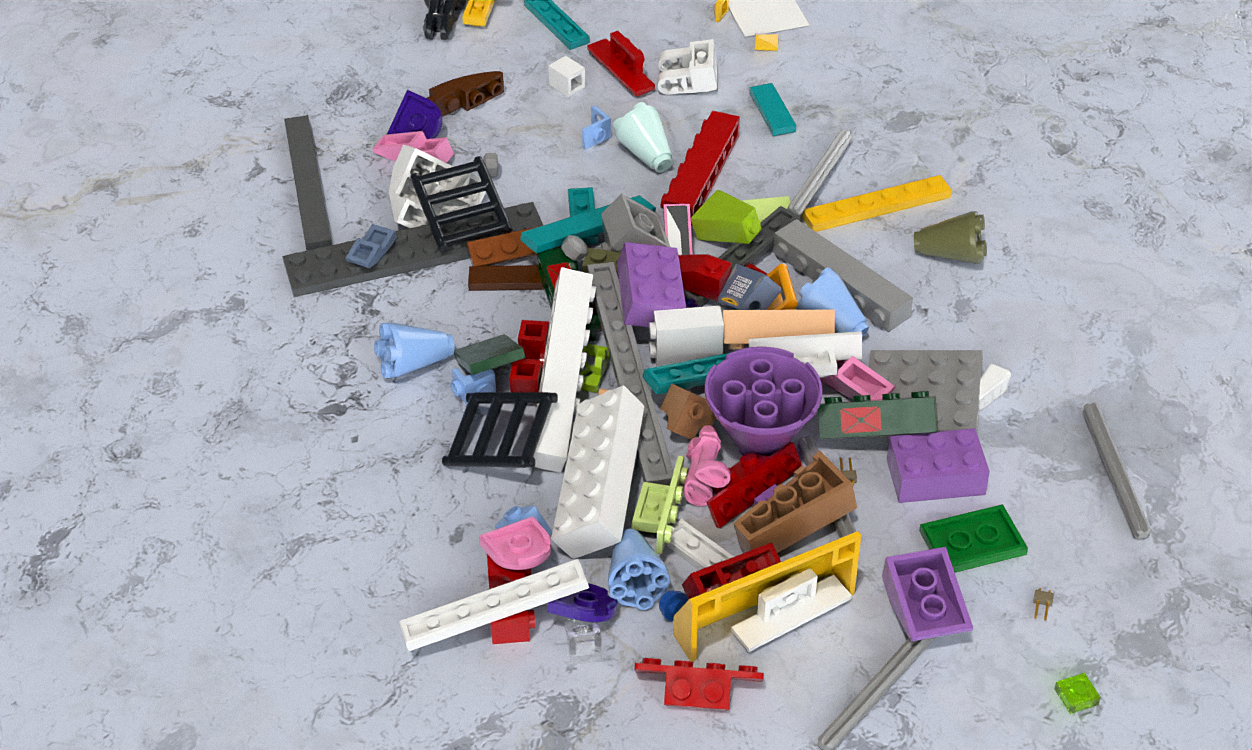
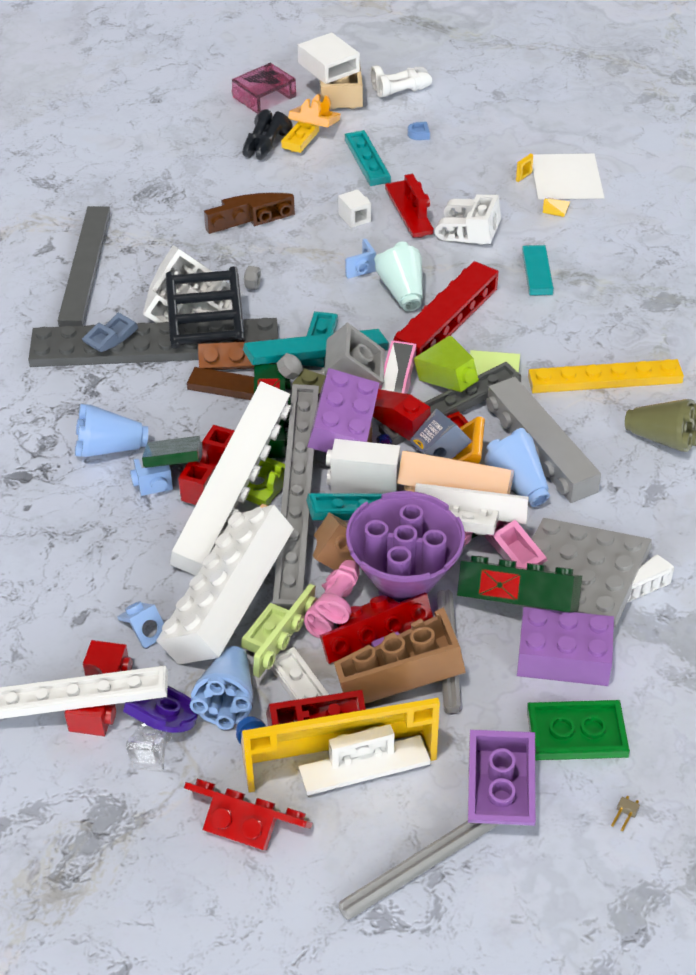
camera: 15 degrees right, 0 degrees up
(391, 144) = (205, 254): bright pink slope -> none
(416, 115) = (200, 226): dark purple tile -> none
(502, 459) = (144, 552): black bar -> none
(518, 544) = (121, 639): bright pink tile -> none
(820, 172) = (558, 337): light grey axle -> none
(850, 474) = (473, 638): dark tan piece -> none
(1077, 693) = (627, 917): clear neon green plate -> none

